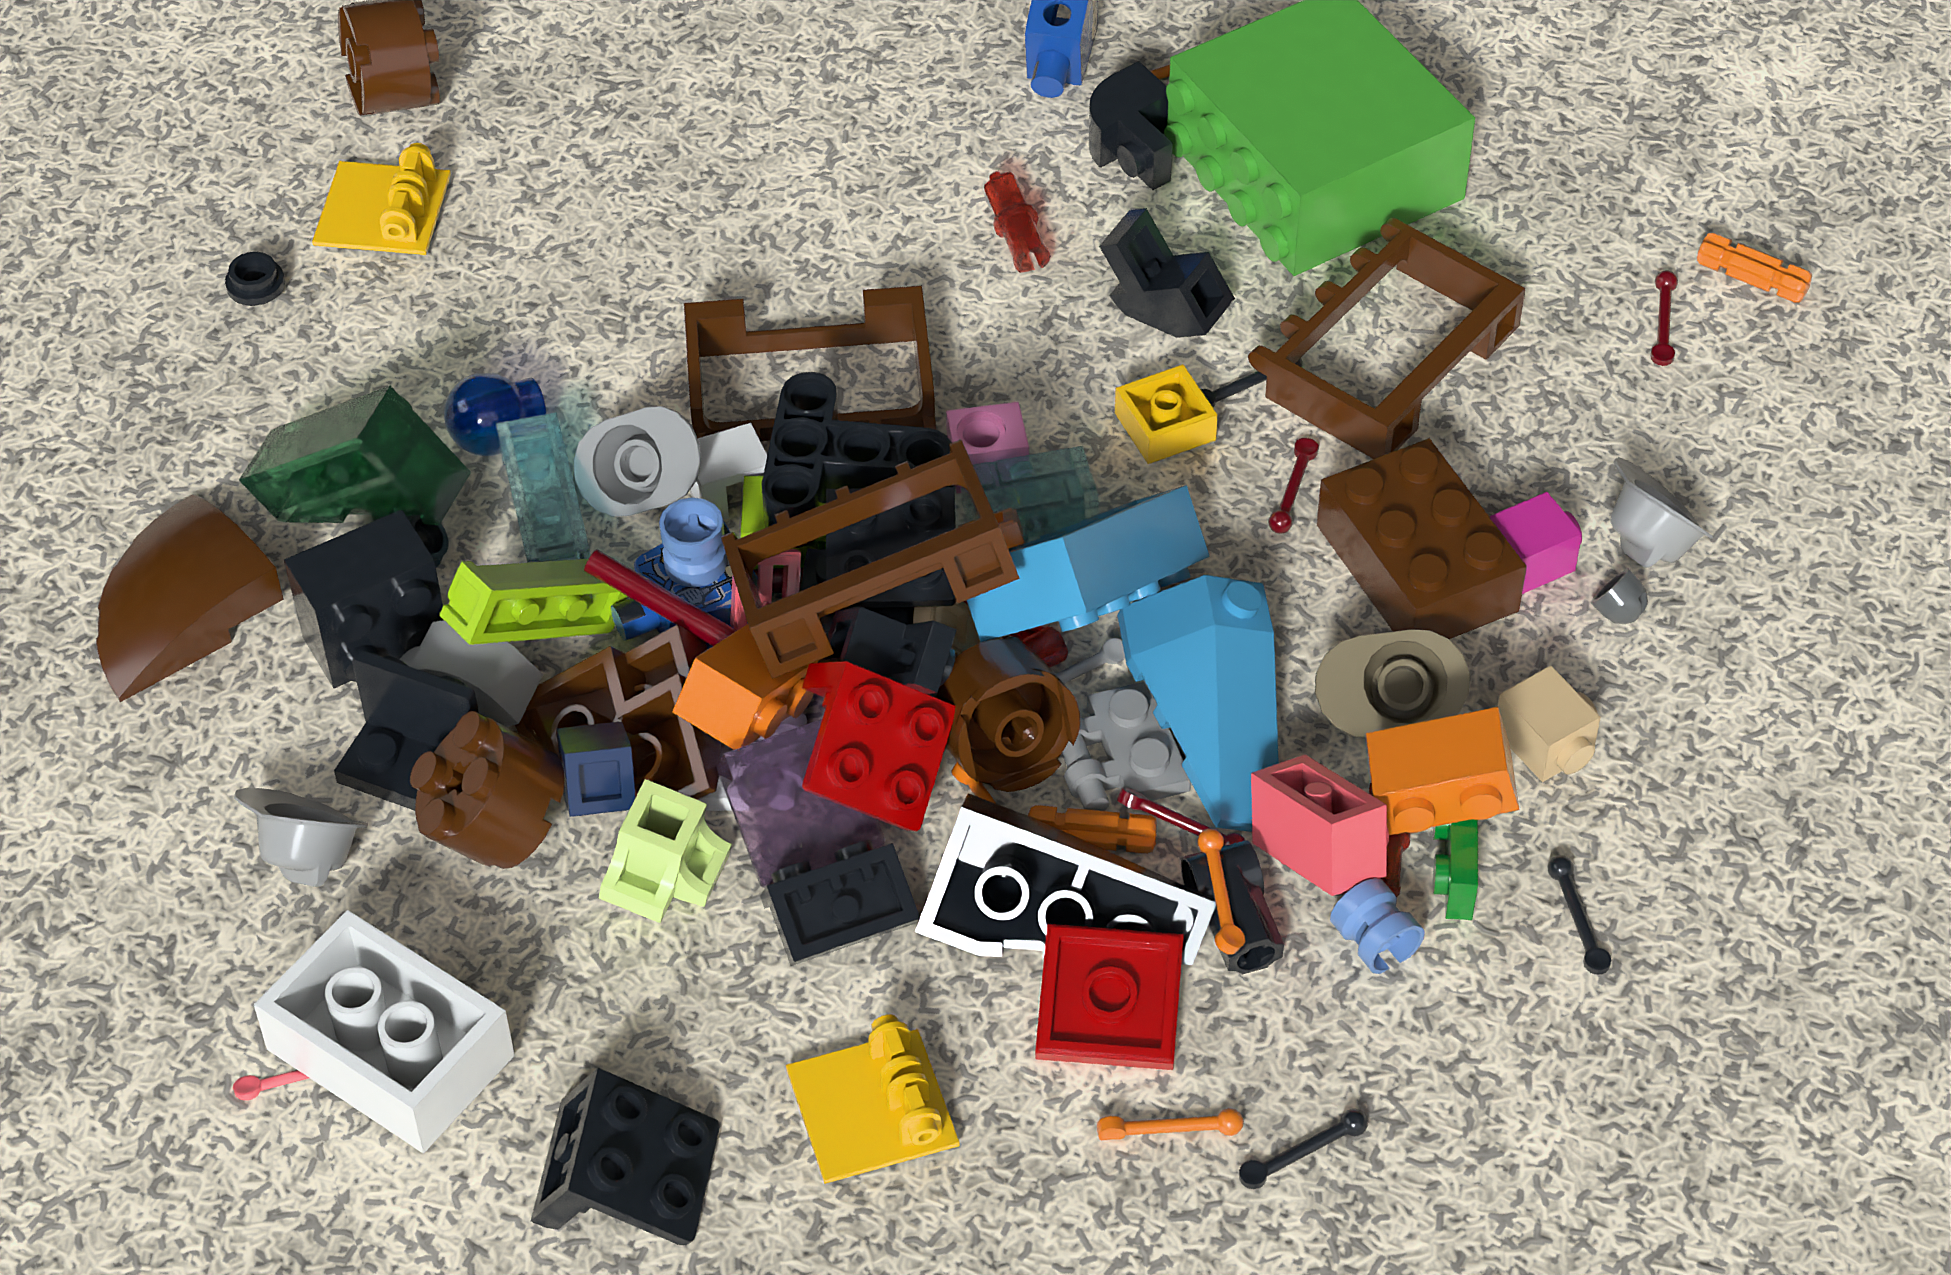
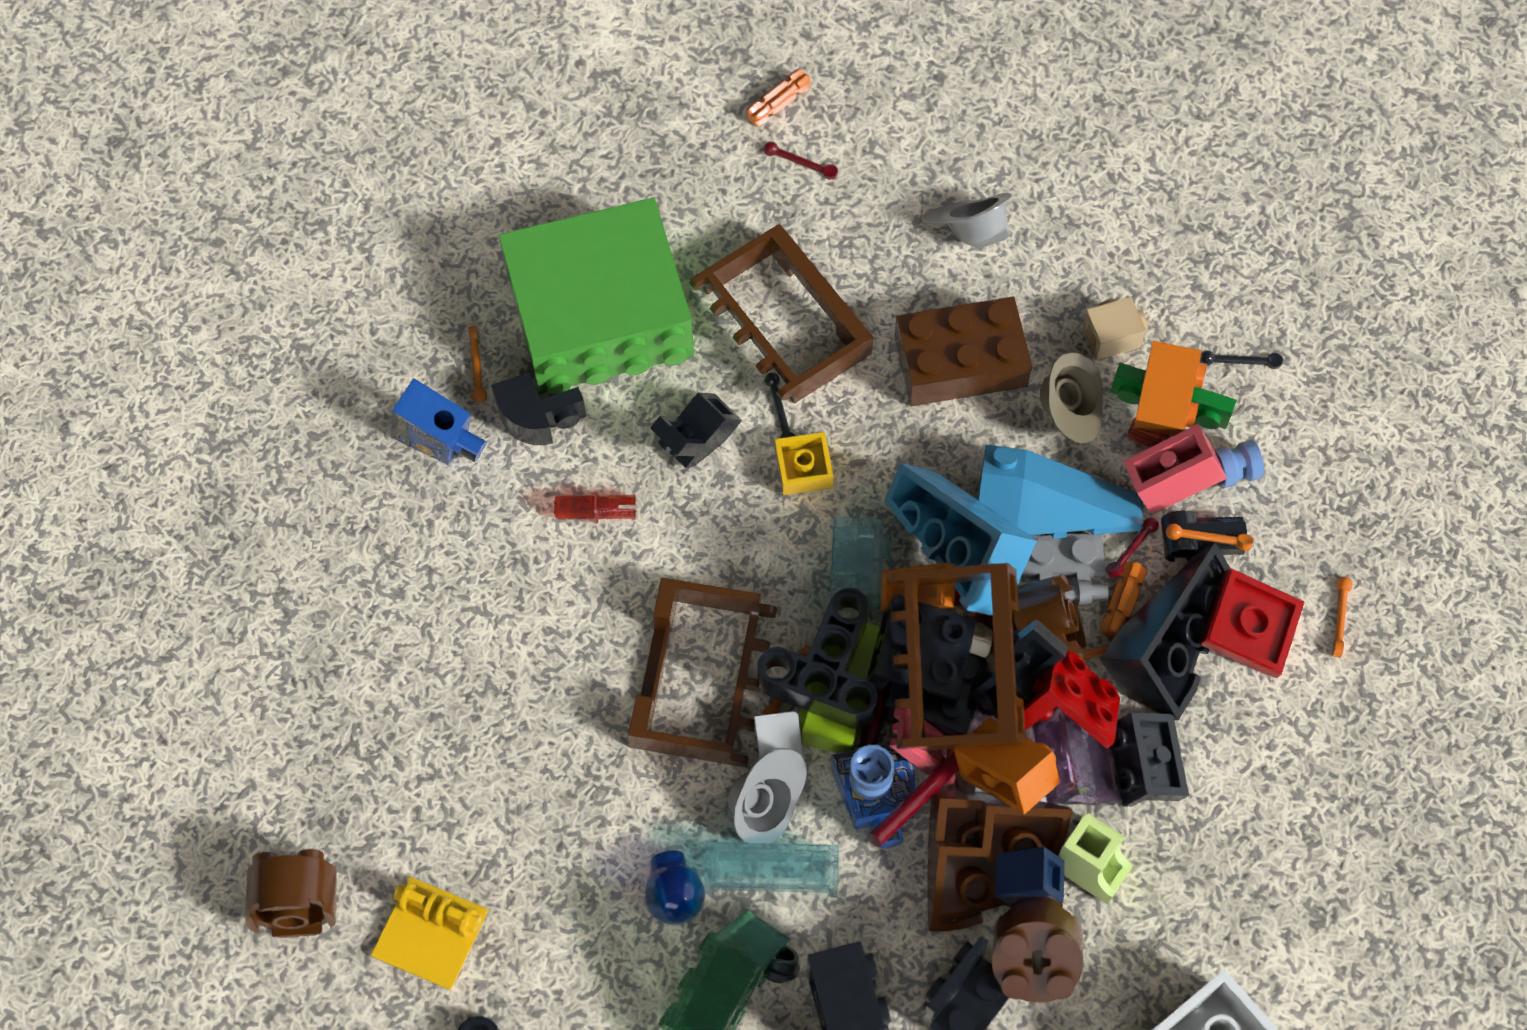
camera: 75 degrees left, 15 degrees up
(495, 671) = (917, 955): light grey brick -> none
(528, 602) = (885, 887): lime container -> none
(627, 1158) = (1314, 931): black bracket -> none
(872, 1103) = (1297, 776): yellow hinge -> none
(988, 432) = (809, 563): bright pink brick -> none
(1254, 1173) = (1380, 581): black hinge -> none
(1281, 520) = (848, 393): dark red hinge -> none
(1542, 537) = (973, 282): dark pink brick -> none
(1622, 598) = (1017, 254): dark grey hinge -> none

